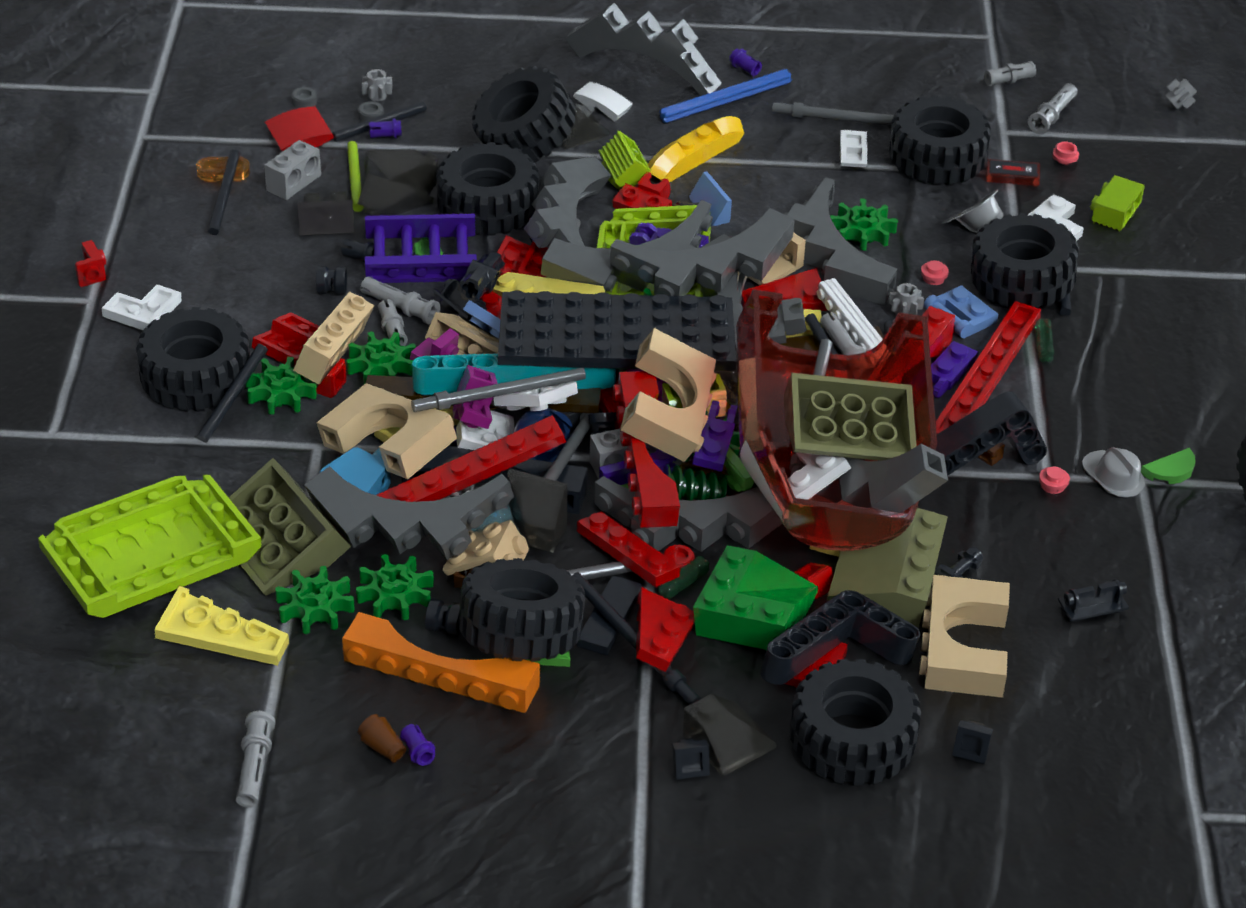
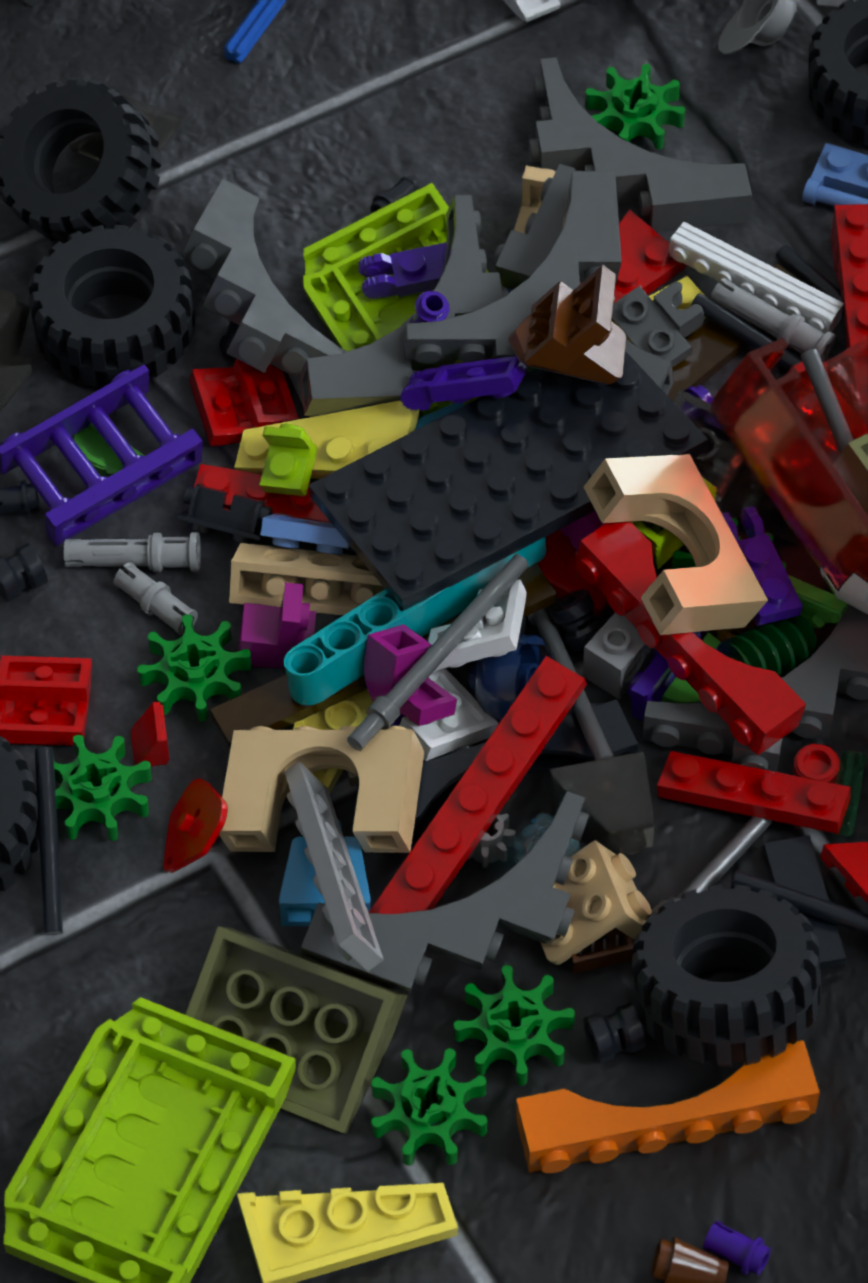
camera: 30 degrees left, 15 degrees up
(310, 420) = (194, 825): none -> red piece
(332, 338) = (118, 675): tan brick -> none
(348, 454) = (333, 868): none -> light grey plate
(481, 276) = (234, 464): black piece -> none
(515, 281) = (288, 460): none -> lime bracket
(601, 97) = (129, 65): white slope -> none
(623, 161) = (255, 164): lime brick -> none
(626, 282) = (462, 382): none -> dark purple hinge
(637, 236) = (430, 307): none -> dark purple pin
(644, 195) = (320, 209): red plate -> none
(696, 148) = (320, 91): yellow brick -> none
(701, 278) = (574, 331): none -> reddish brown piece
(709, 191) = (399, 157): medium blue slope -> none
(906, 299) = (781, 204): light grey gear -> none
(934, 272) = (775, 138): coral plate -> none

